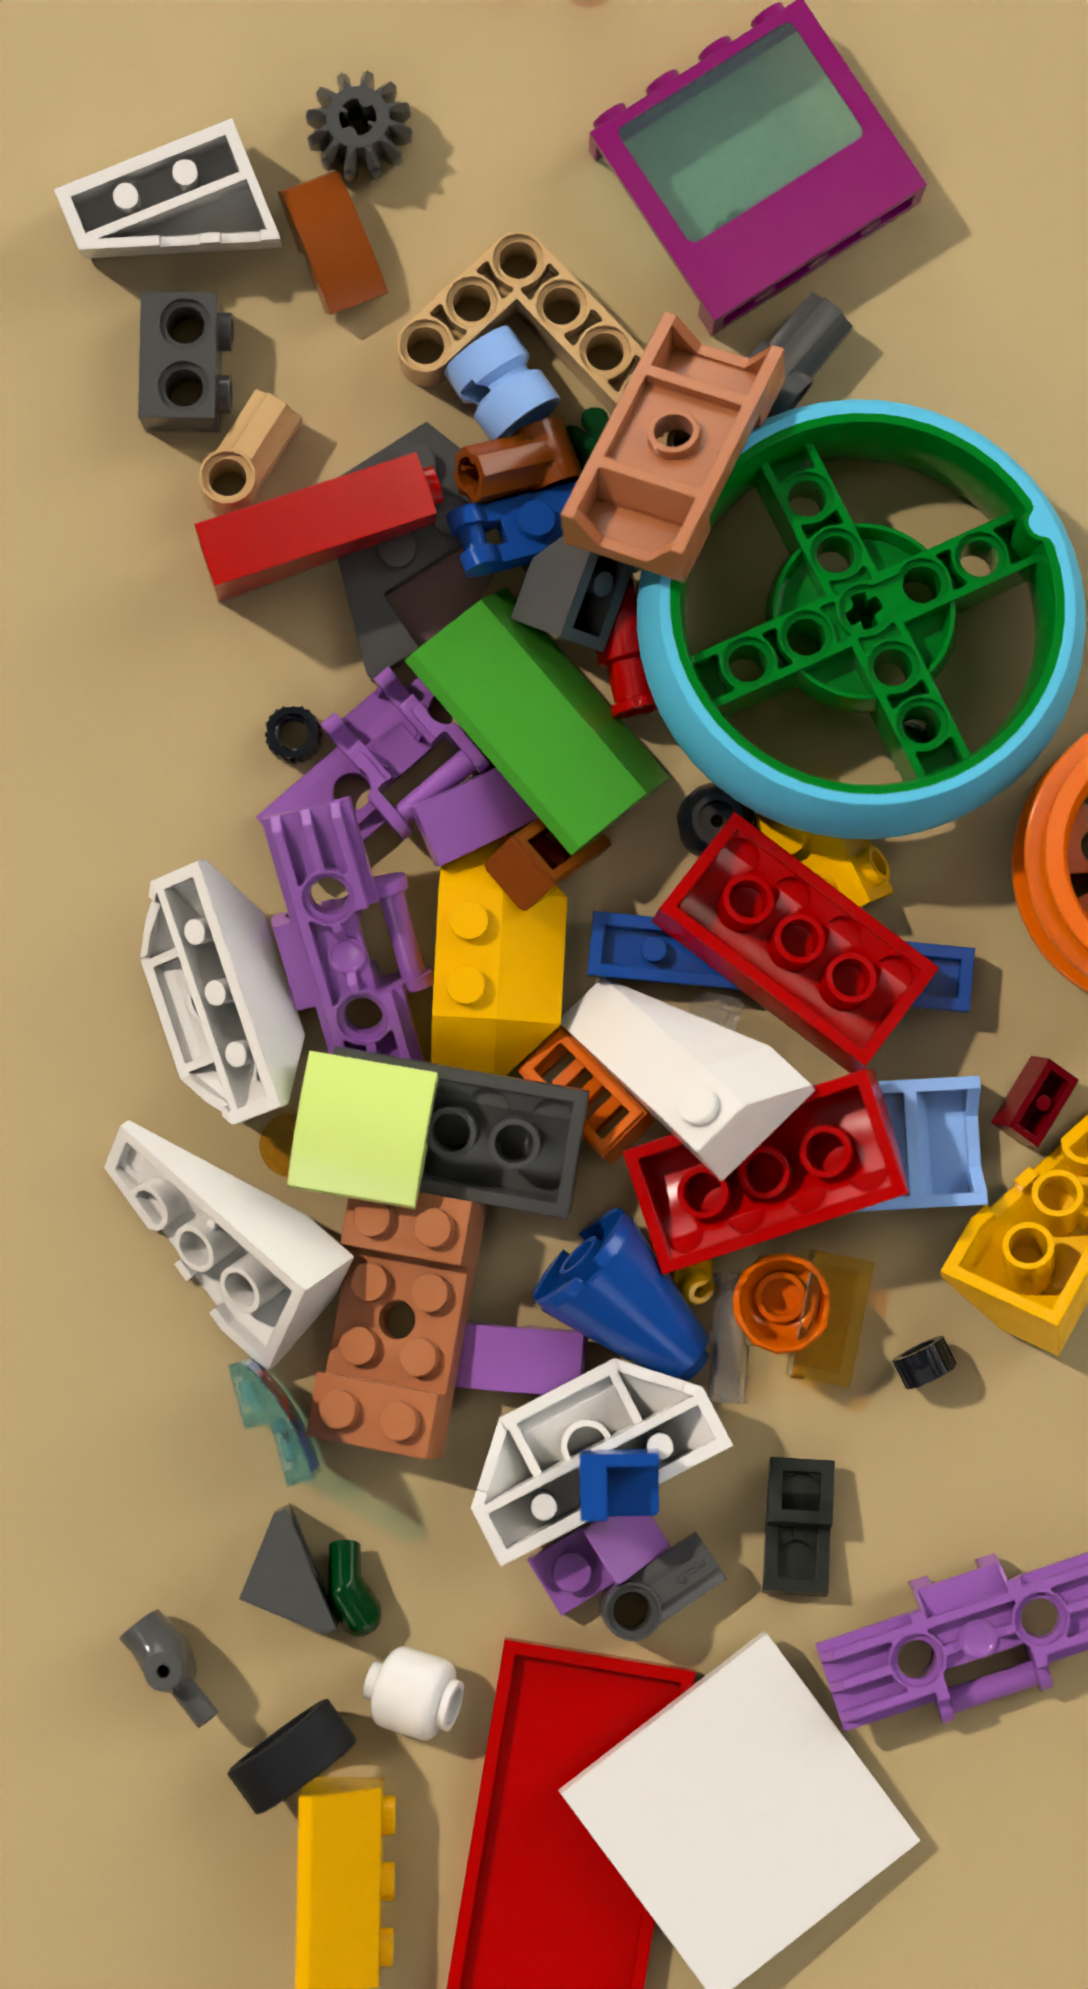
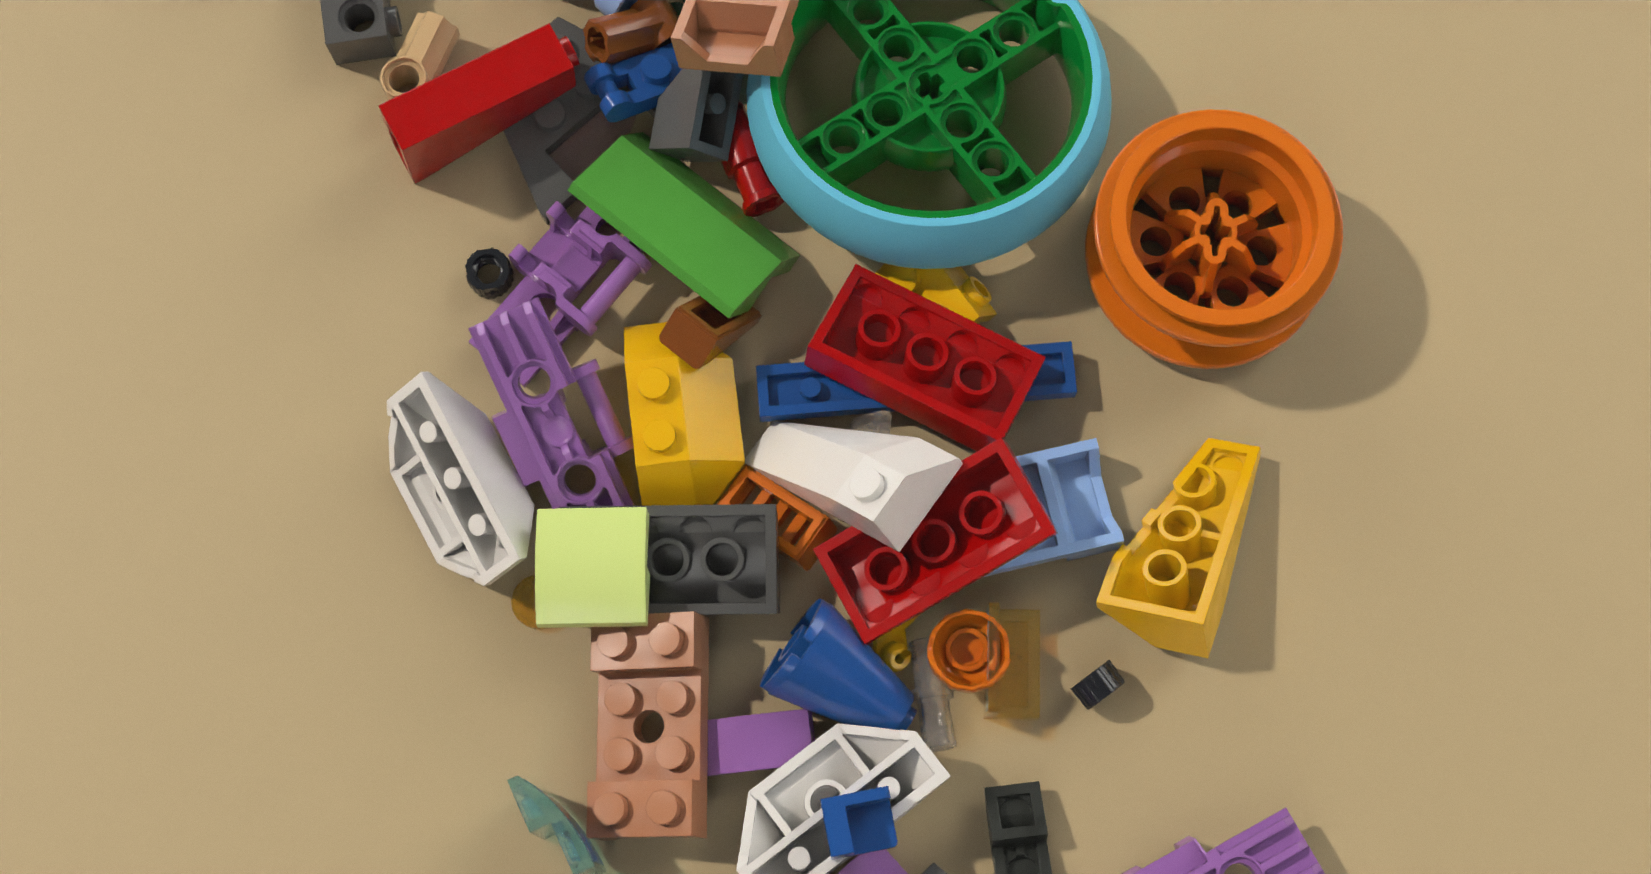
camera: 10 degrees left, 10 degrees down
(249, 1251) = (514, 692): white wedge -> none
(470, 816) = (641, 304): medium lavender slope -> none
(696, 814) = (829, 271): black plate -> none
(1034, 1101) = (1145, 455): dark red piece -> none

